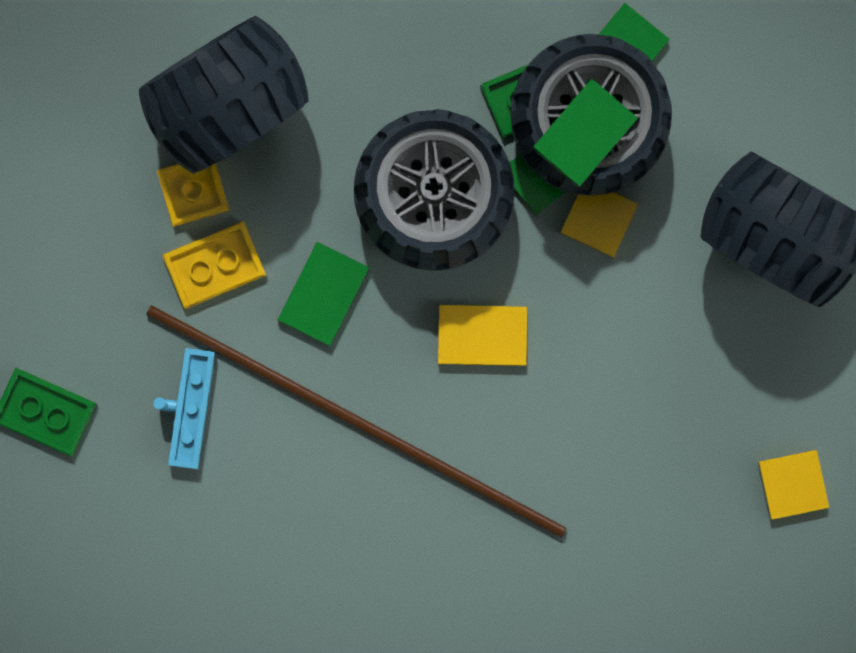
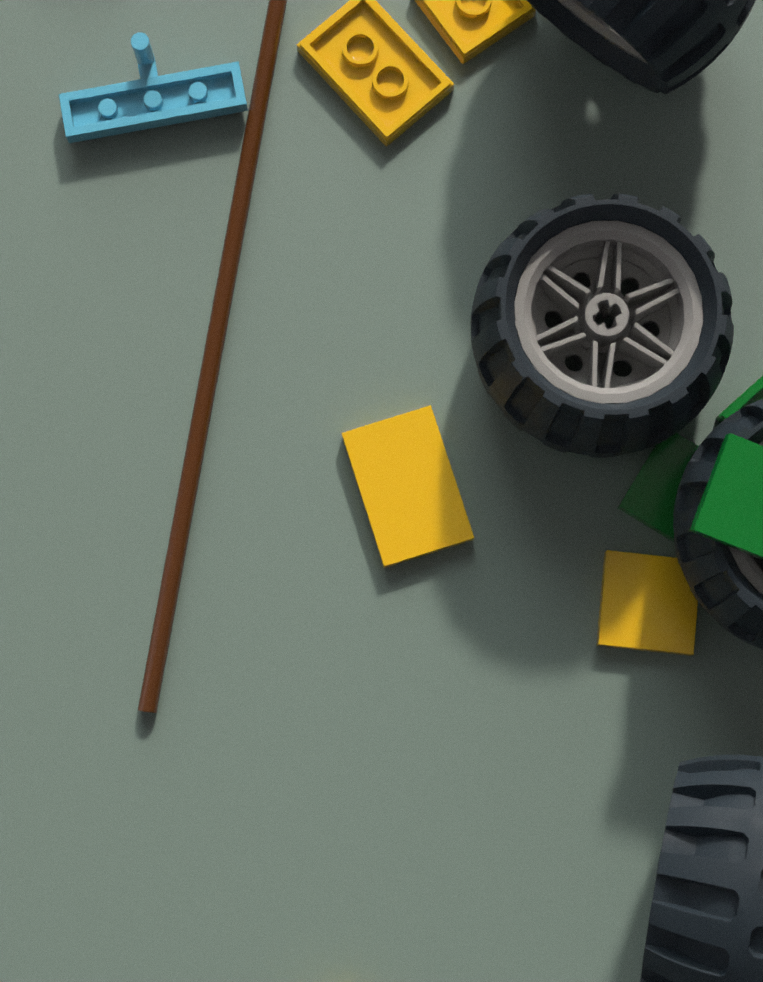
camera: 70 degrees right, 5 degrees down
(323, 293) = (387, 233): green tile -> none

